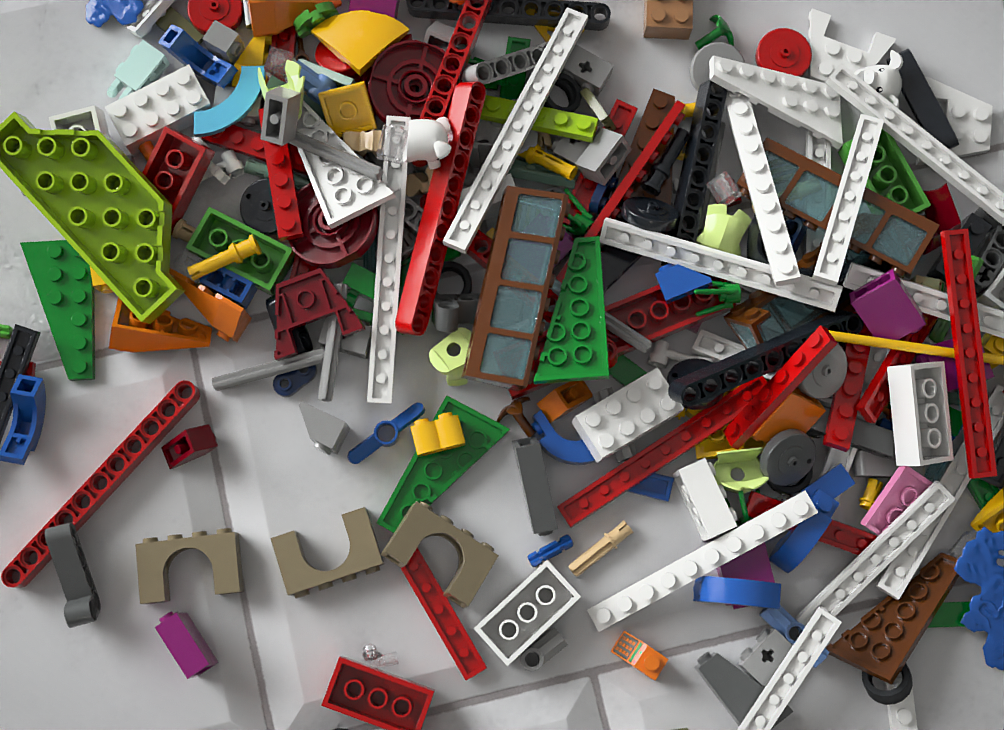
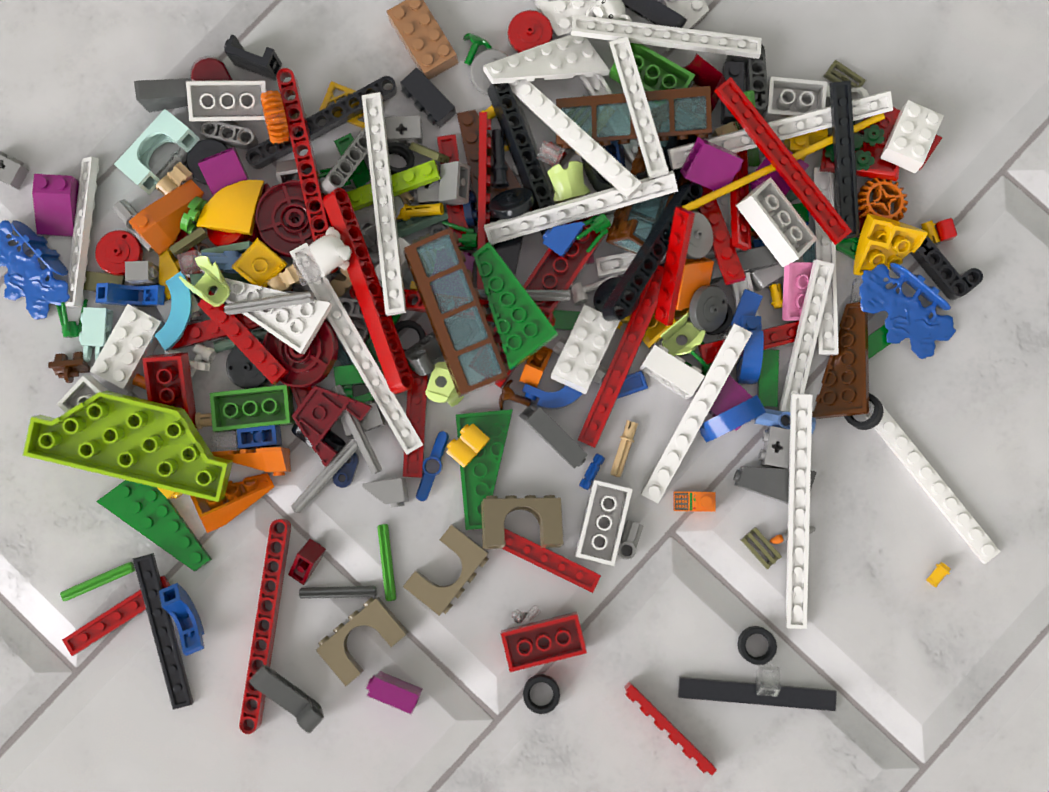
camera: 25 degrees left, 5 degrees up
(87, 92) = (69, 368): none -> reddish brown hips
(115, 53) = (69, 328): none -> green plant
(199, 500) = (337, 592): none -> dark grey axle
(235, 253) = (249, 413): yellow pin -> none
(271, 503) = (386, 561): none -> bright green axle
(280, 115) = (217, 300): light grey brick -> none
(293, 42) = (189, 241): none -> olive tile
(405, 370) = (417, 416): none -> red plate
(633, 54) = (427, 98): none -> black brick
(805, 576) = (768, 378): none -> green tile

